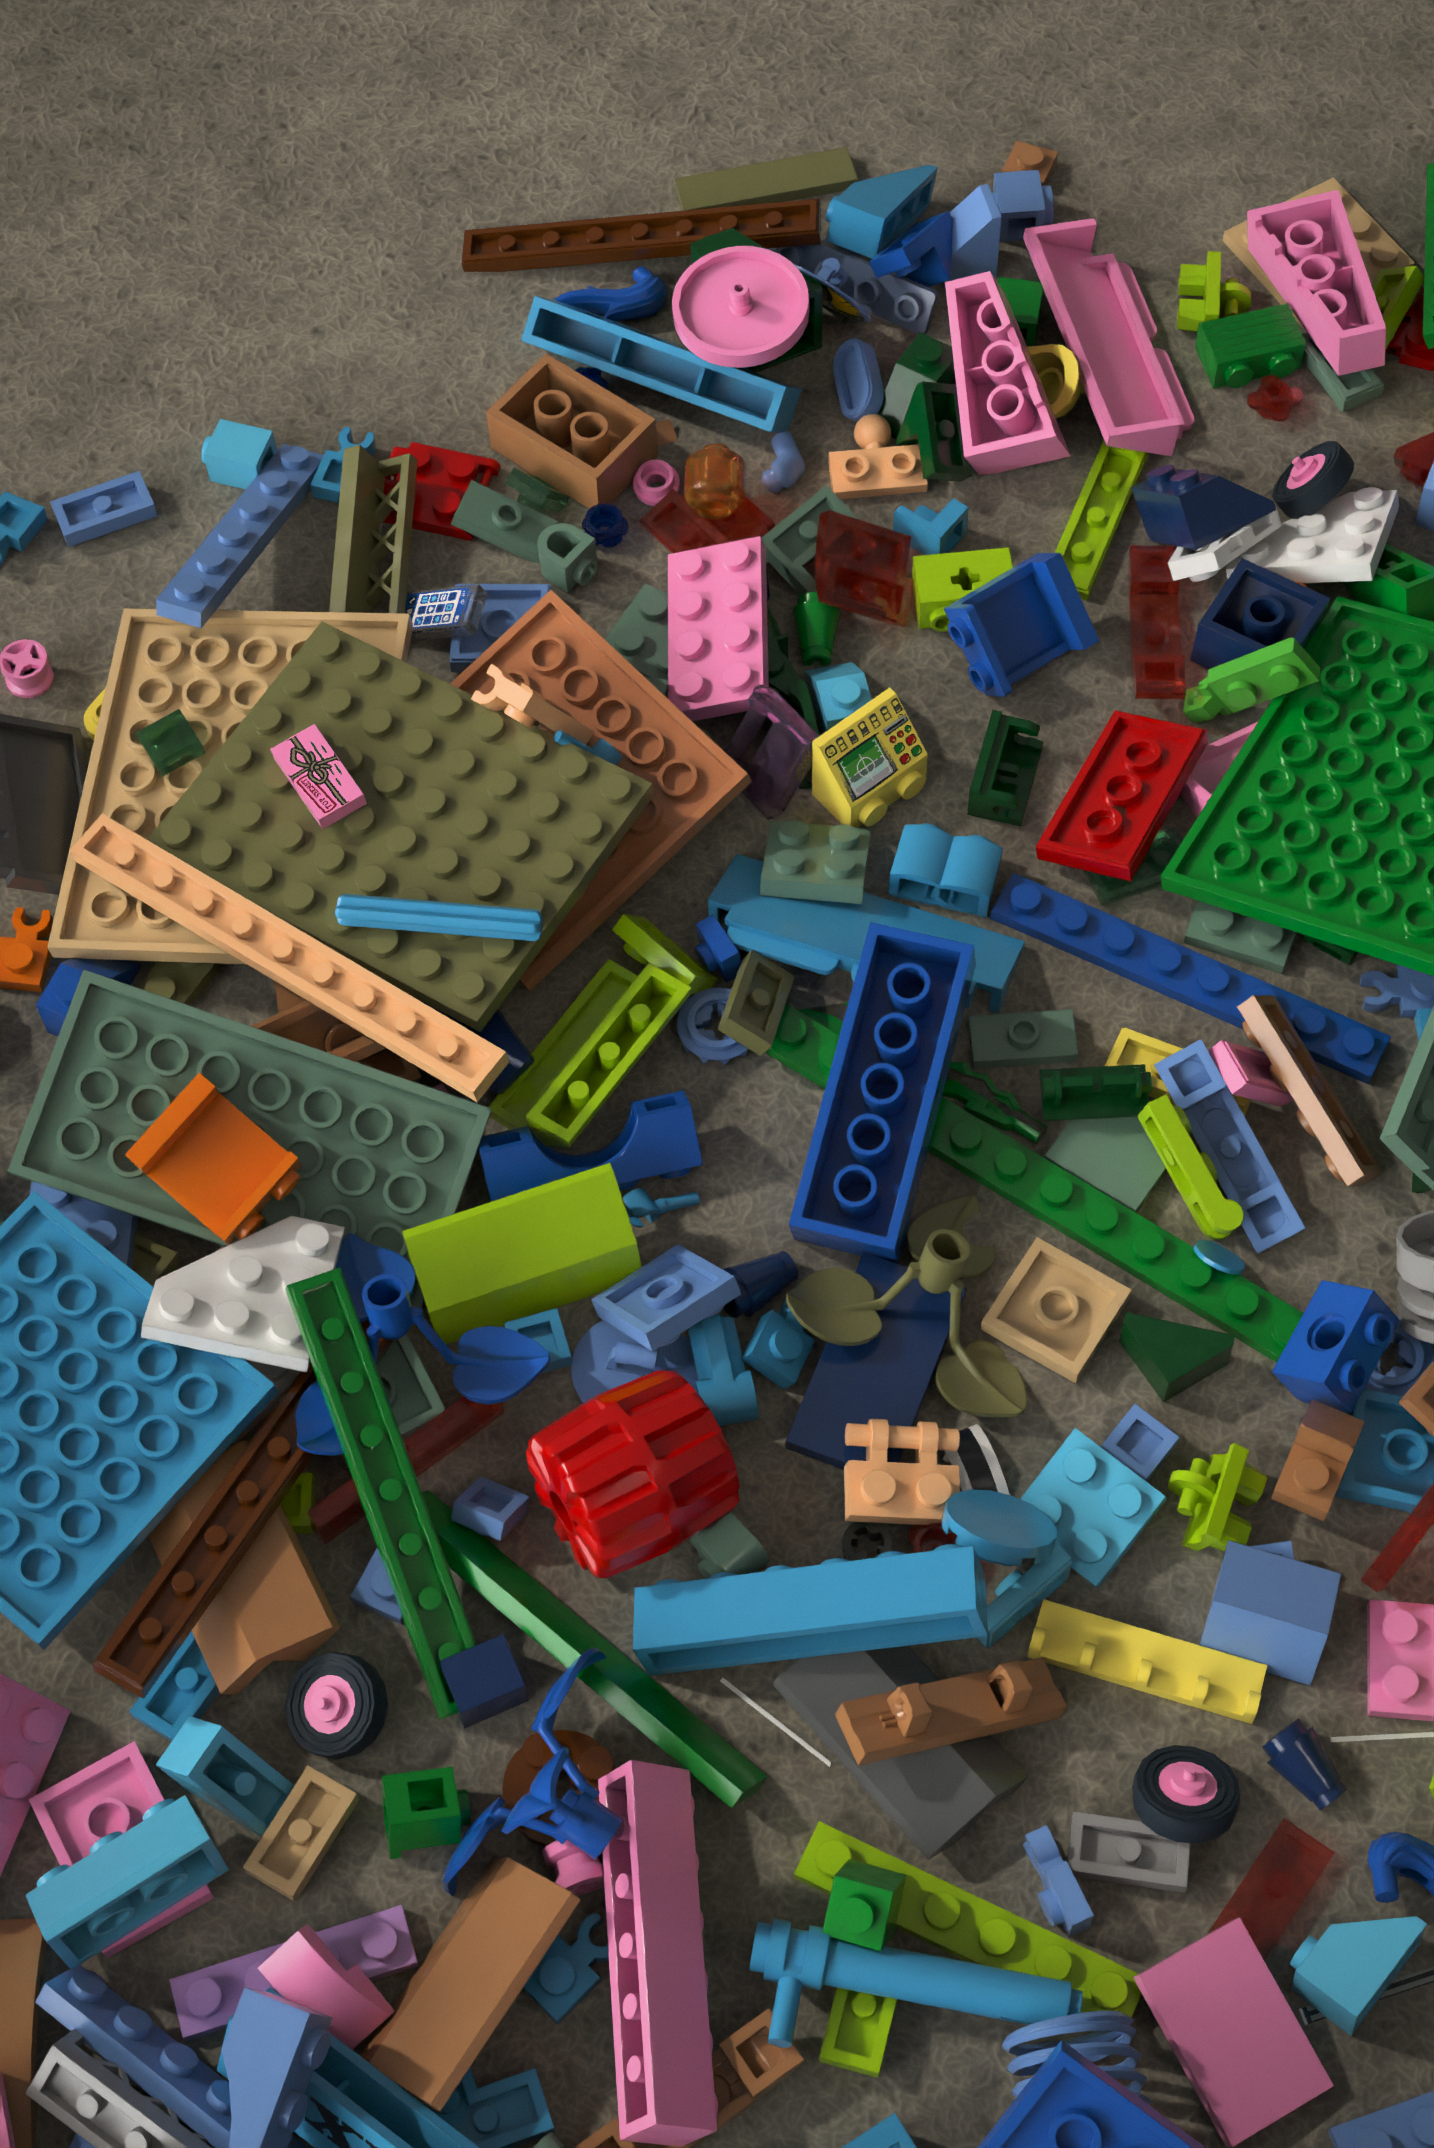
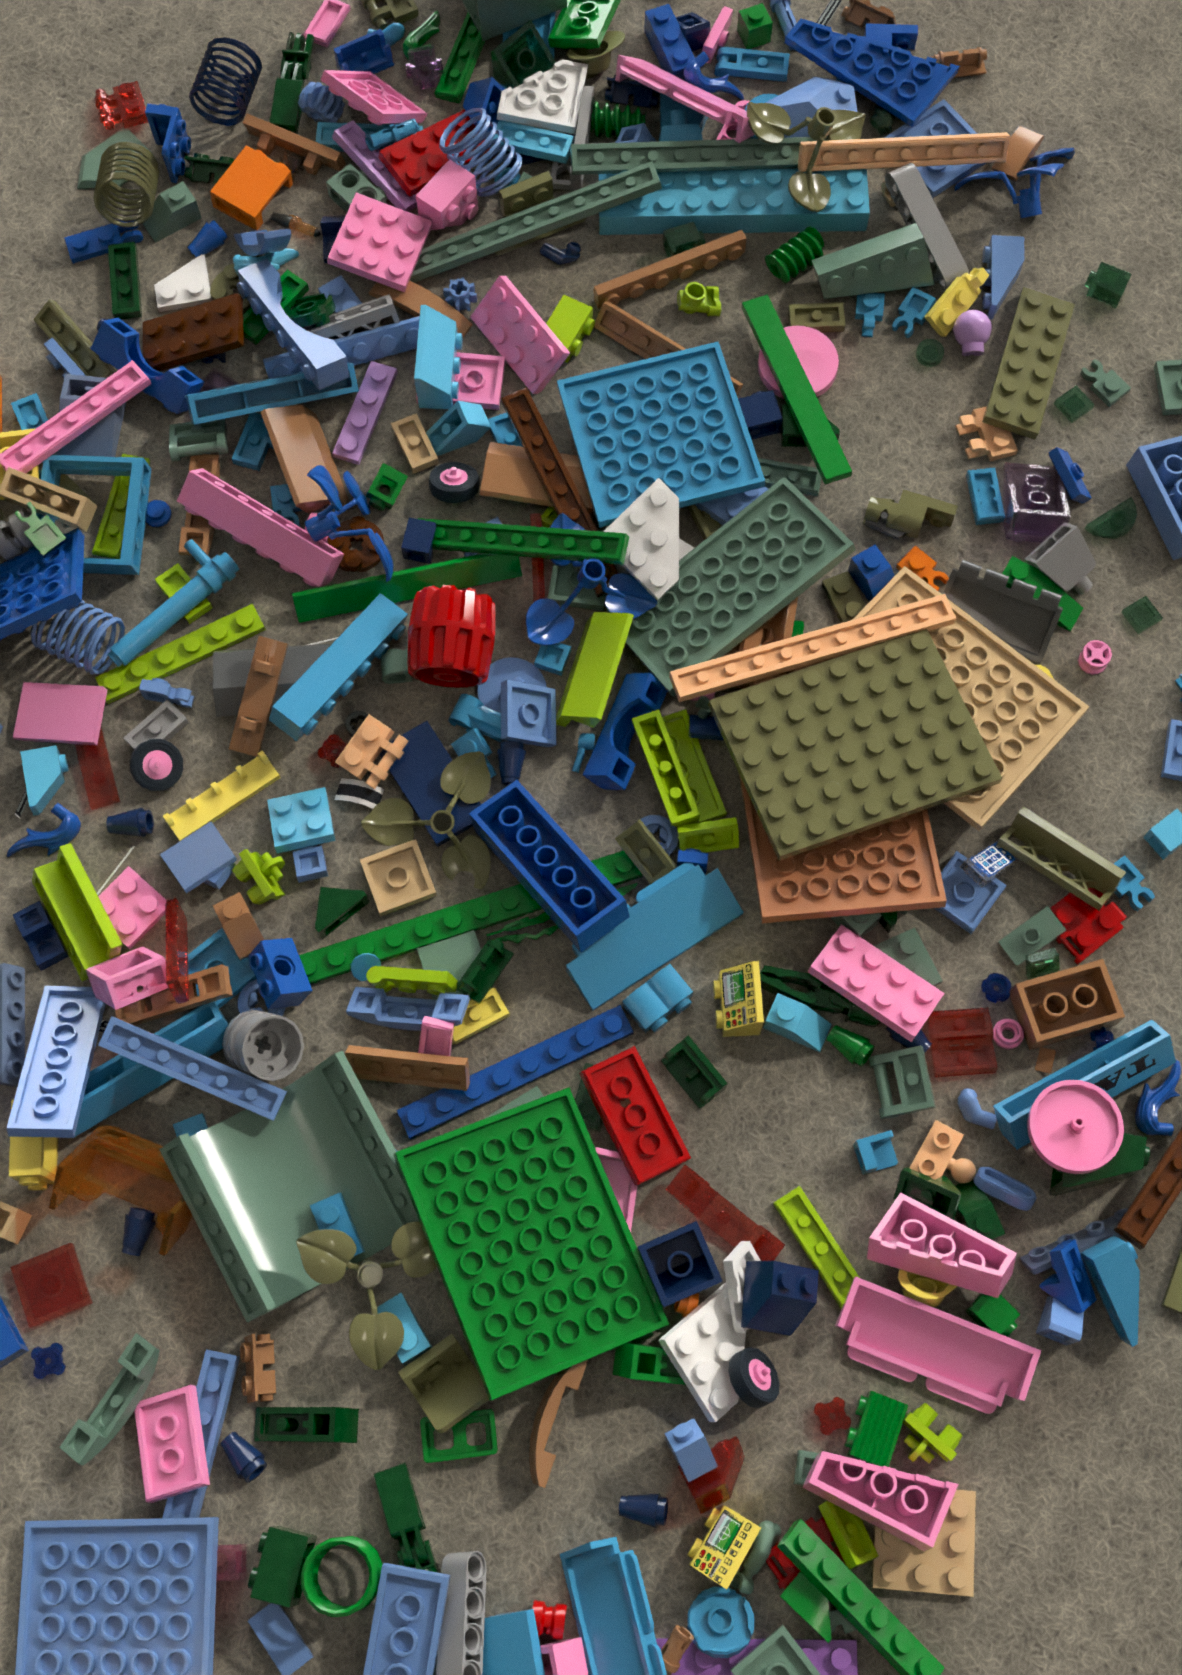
camera: 125 degrees right, 10 degrees up
(170, 742) = (982, 675): clear green tile -> none
(215, 1161) = (723, 560): orange panel -> none
(239, 537) = (1105, 794): medium blue plate -> none
(314, 1978) = (336, 414): bright pink slope -> none
(318, 776) = (898, 712): bright pink tile -> none
(439, 917) = (772, 711): dark azure axle -> none
(490, 1508) = (494, 586): medium blue plate -> none
(528, 706) = (868, 834): light nougat plate -> none
(567, 556) = (985, 949): sand green plate -> none
(601, 748) = (824, 854): dark azure hand -> none
(714, 481) = (977, 1050): clear orange head -> none
(782, 755) = (774, 955): plate -> none
(815, 862) = (707, 940): sand green plate -> none
(831, 278) = (1075, 1205): medium blue shield -> none
(862, 568) = (867, 1089): clear red slope -> none
(864, 1904) = (212, 608): green brick -> none
(949, 577) = (834, 1124): lime brick -> none
(999, 1527) = (312, 764): dark azure tile -> none
(1019, 623) = (772, 1136): blue panel -> none
(1021, 202) = (1076, 1382): medium blue brick -> none
(1023, 1038) = (542, 969): sand green plate -> none
(1023, 1593) = (286, 764): medium azure plate -> none
(1031, 157) = (1109, 1418): medium nougat plate -> none
(1251, 680) = (648, 1221): bright green hinge -> none

